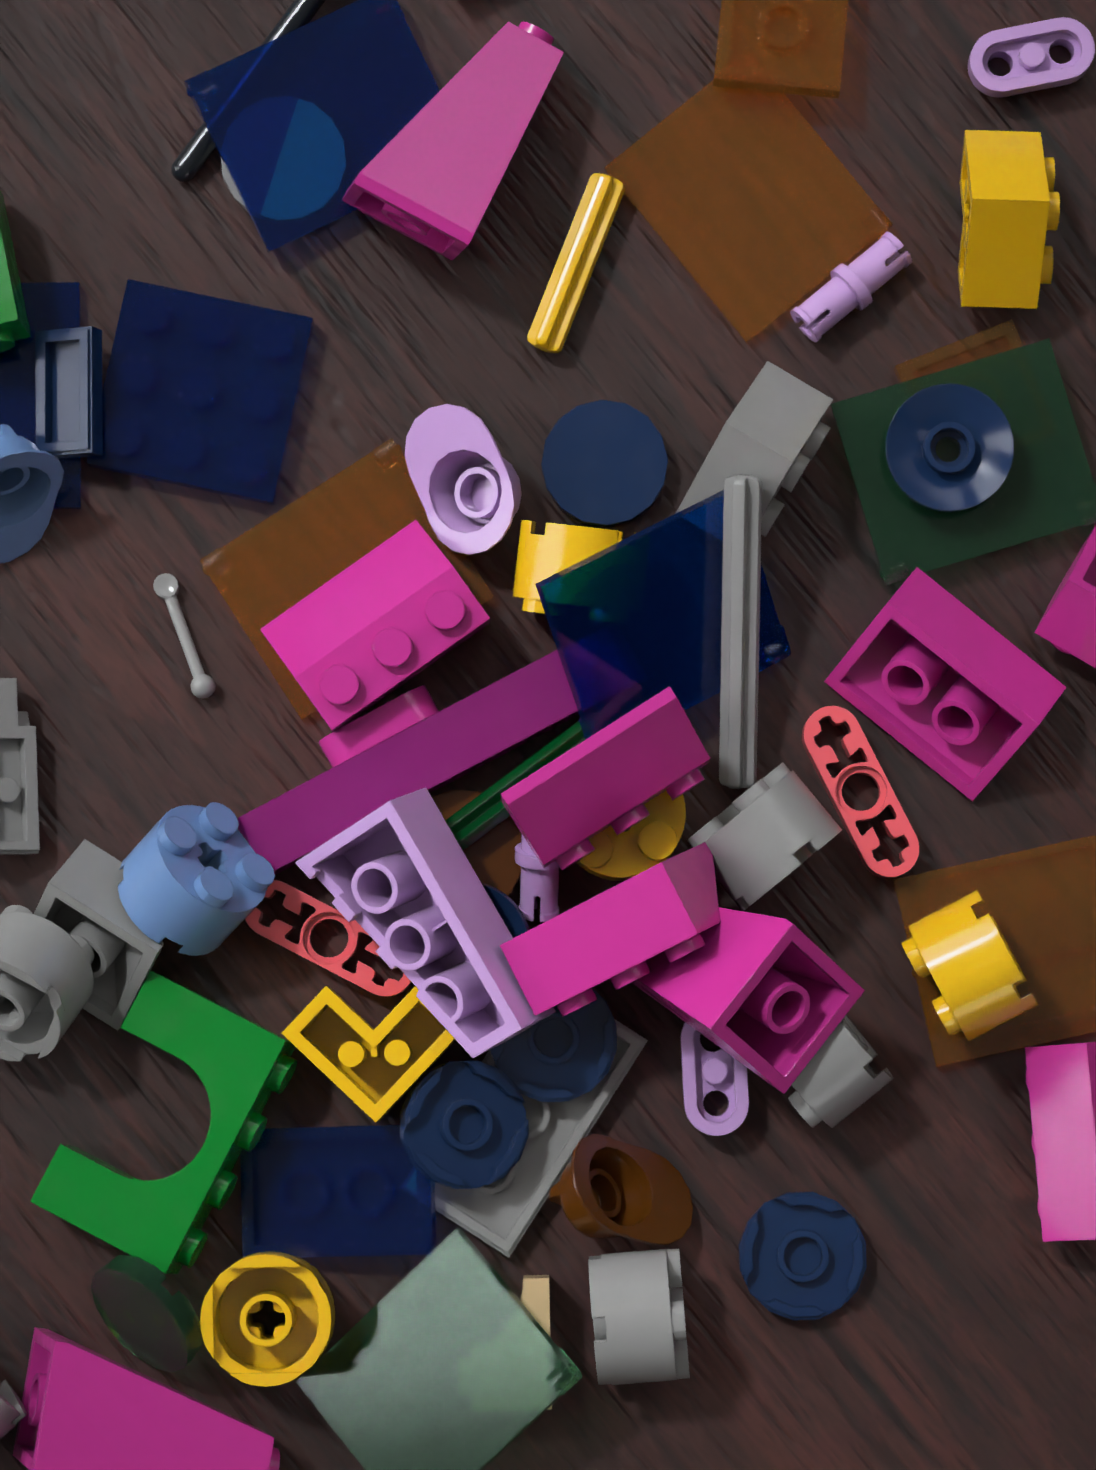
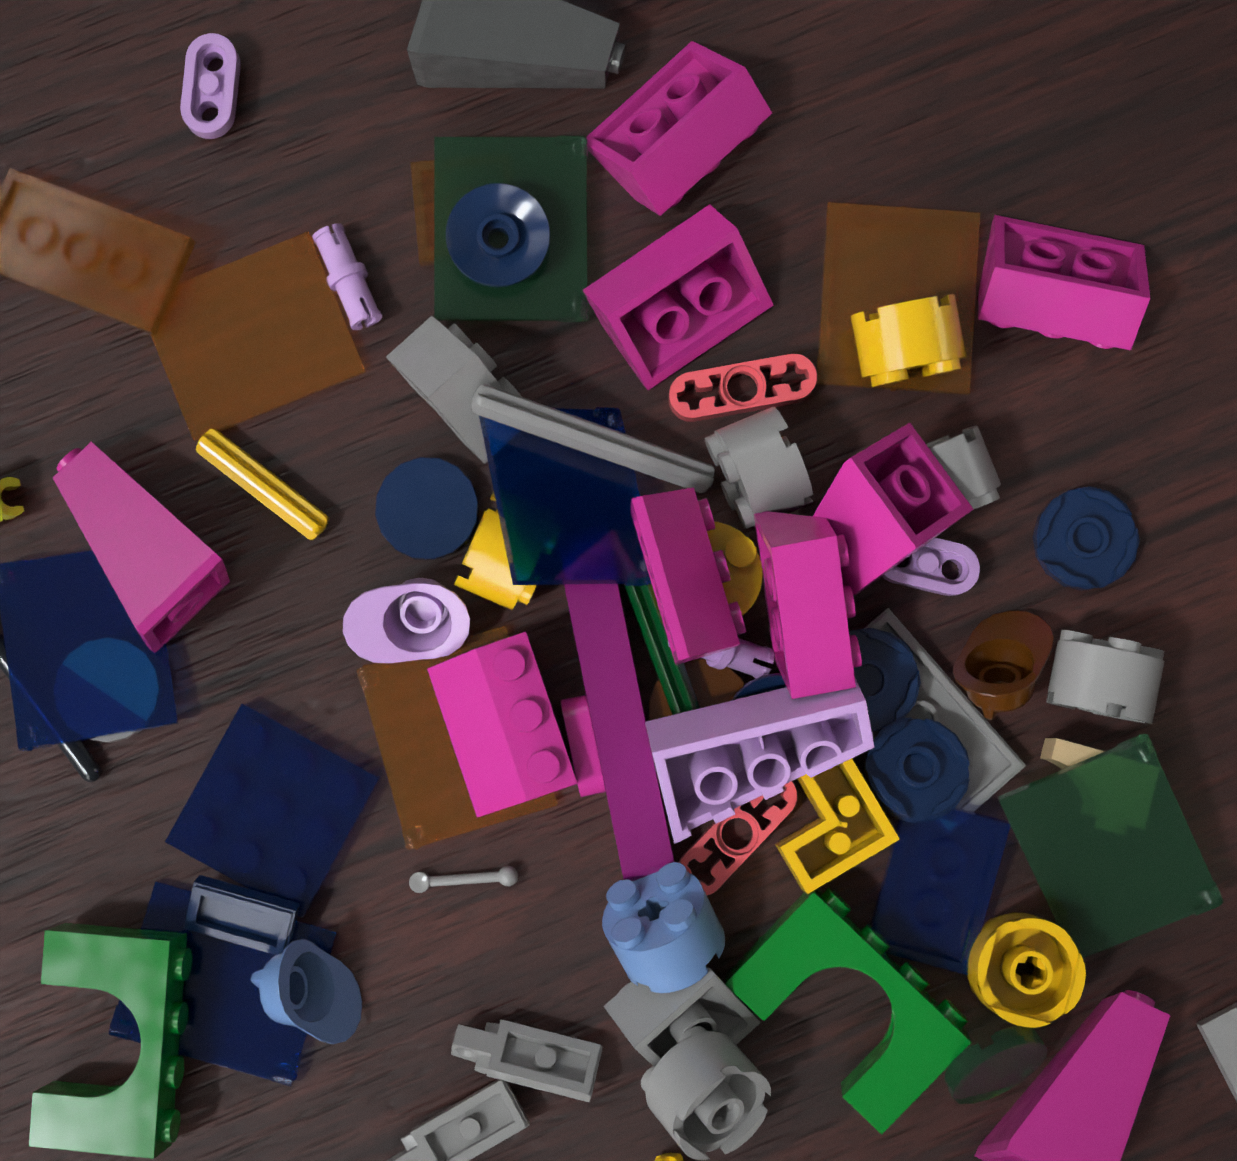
camera: 75 degrees left, 0 degrees up
(1005, 219) = (331, 138): yellow brick -> none

